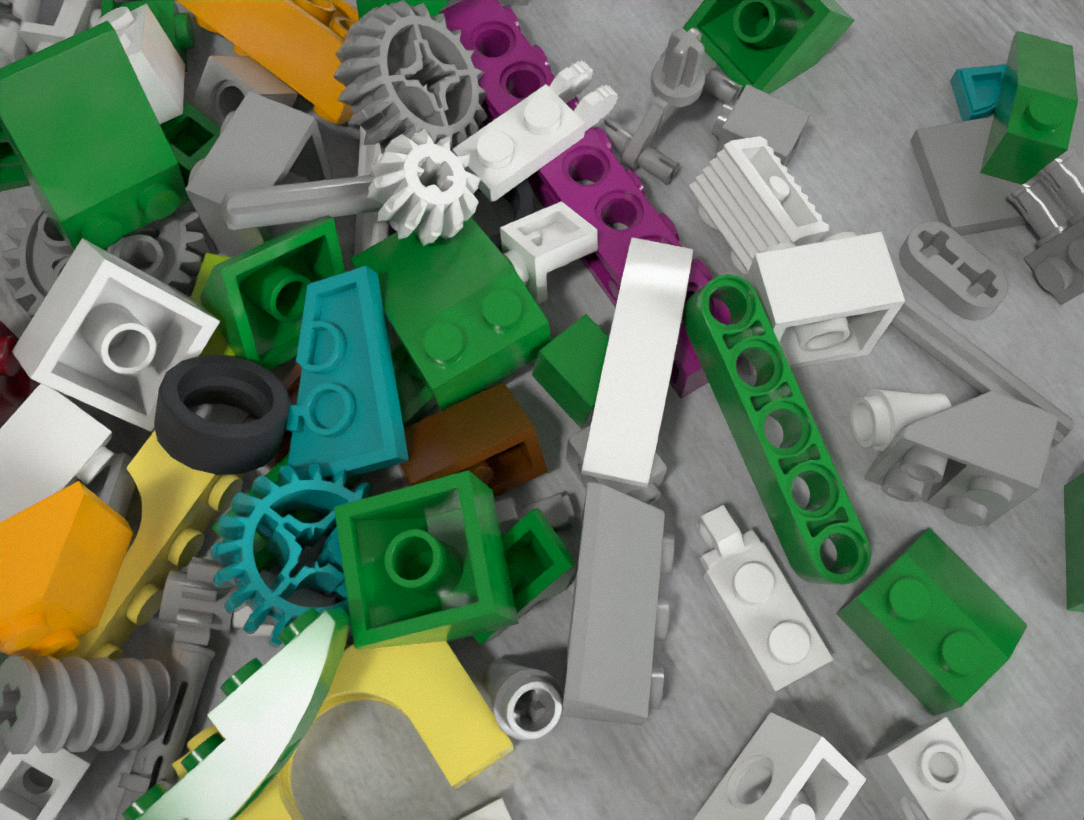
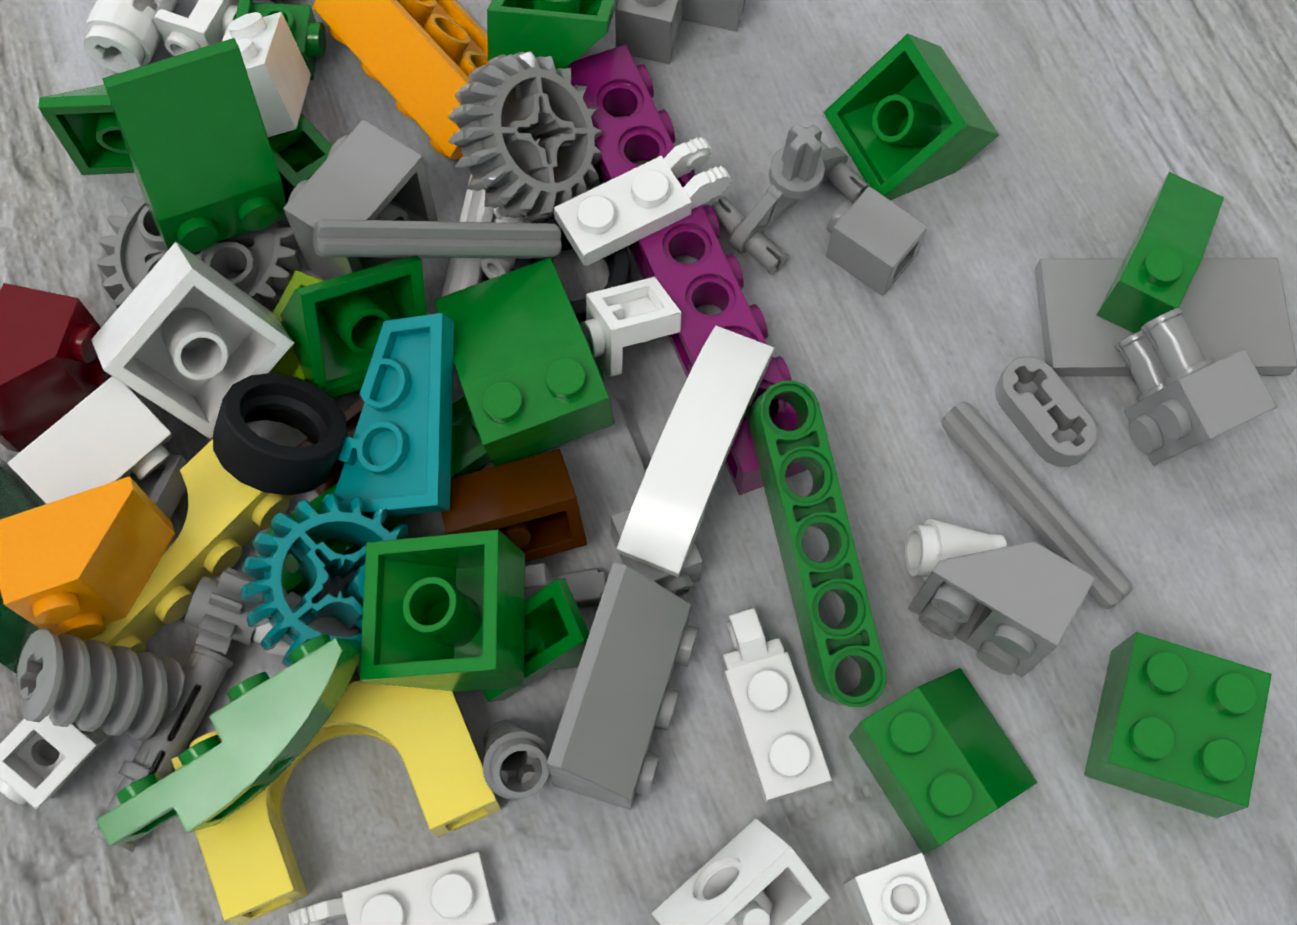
camera: 10 degrees right, 0 degrees up
(229, 80) = (355, 98): light grey brick -> none
(423, 187) = (499, 225): white gear -> none
(573, 368) = (628, 443): green brick -> none
(754, 201) = (853, 315): white brick -> none
(827, 296) = (893, 419): white brick -> none
(977, 90) = (1116, 227): teal tile -> none

